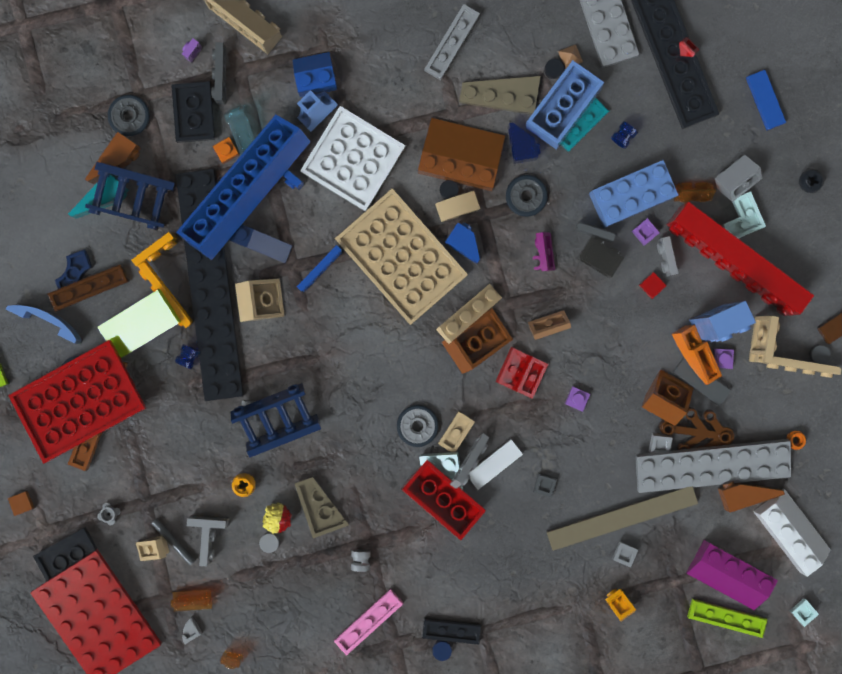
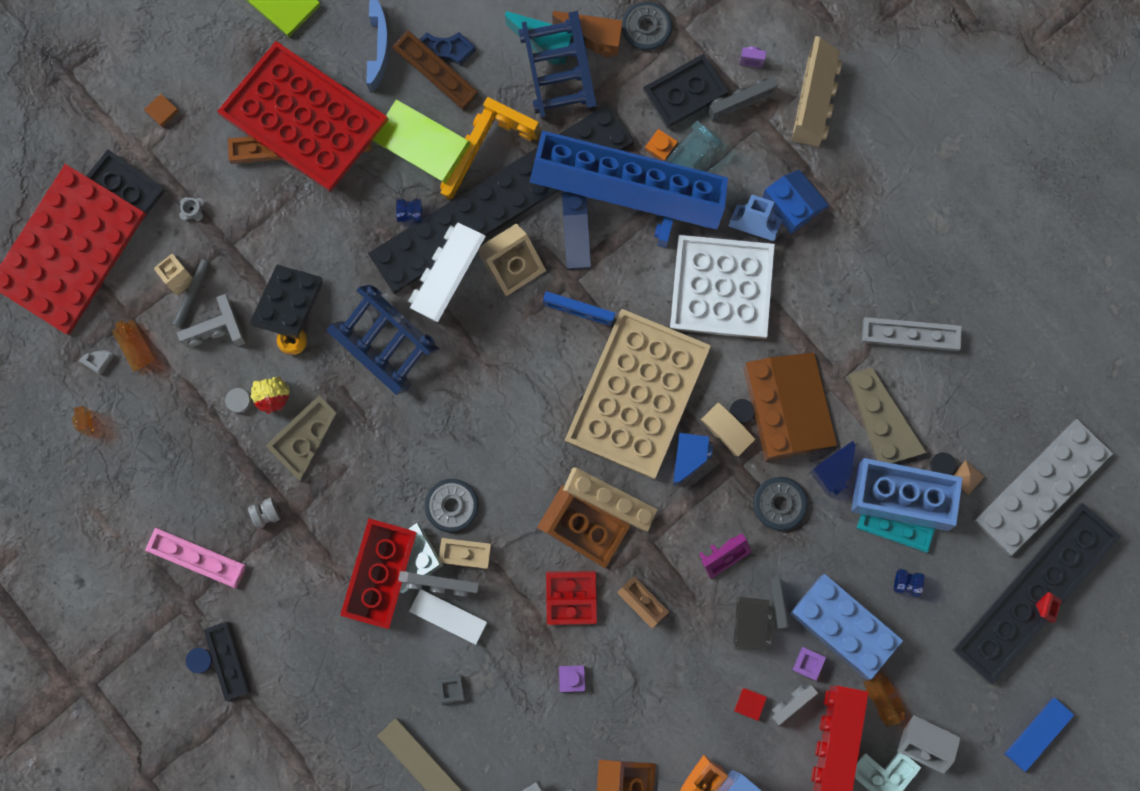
camera: 60 degrees right, 10 degrees down
(213, 476) = (286, 301): none -> black plate
(249, 352) = (446, 272): none -> white slope

